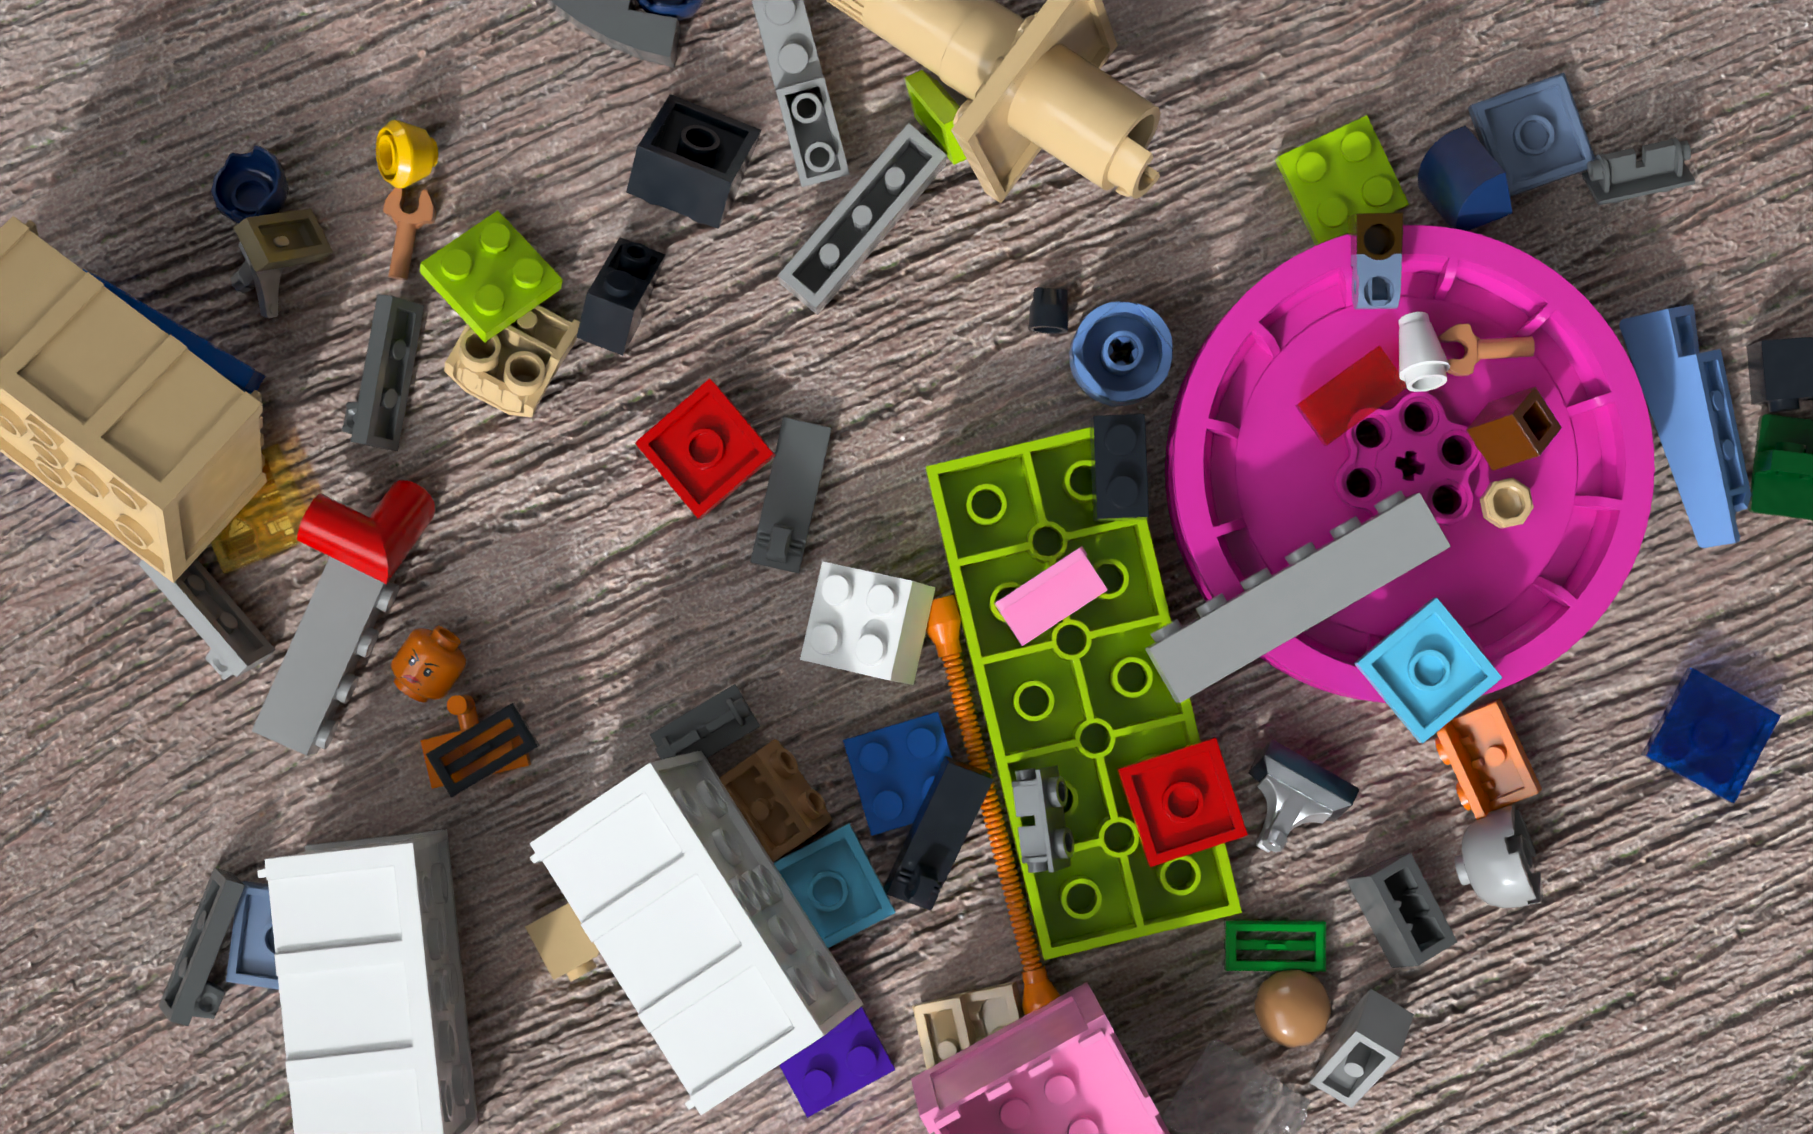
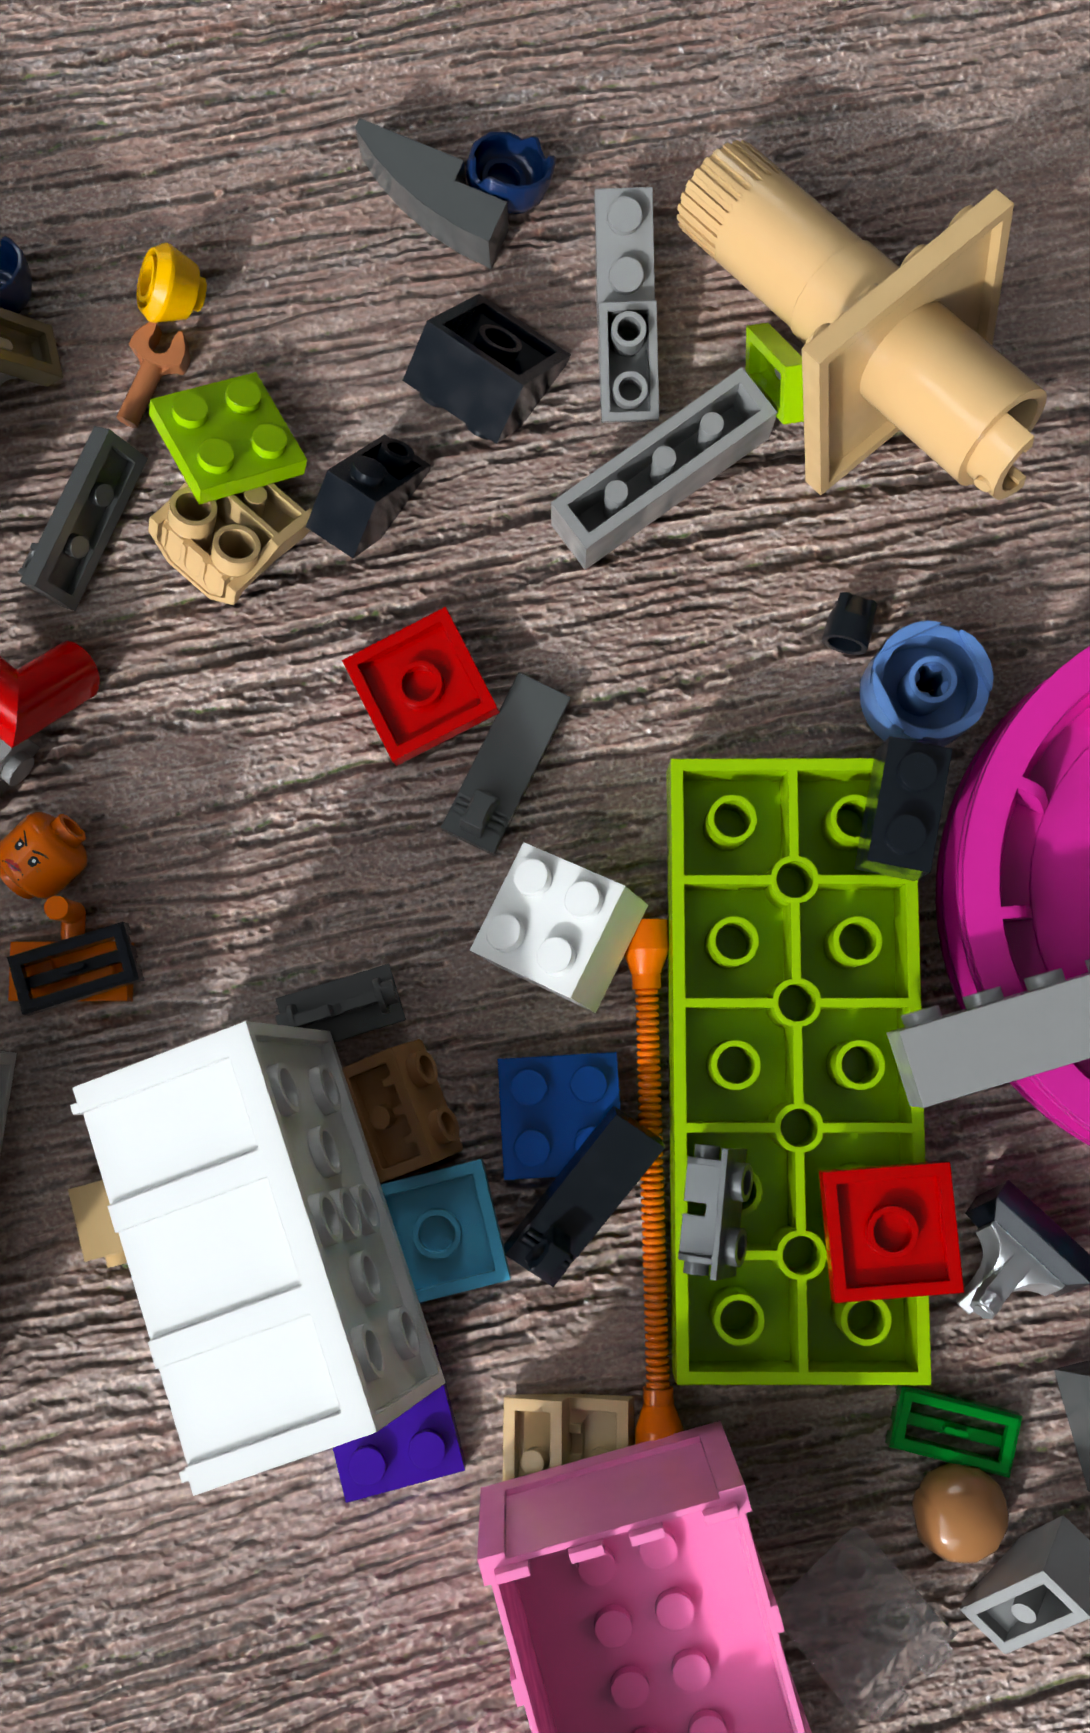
camera: 20 degrees right, 5 degrees down
(1051, 596) = (785, 943): bright pink panel -> none

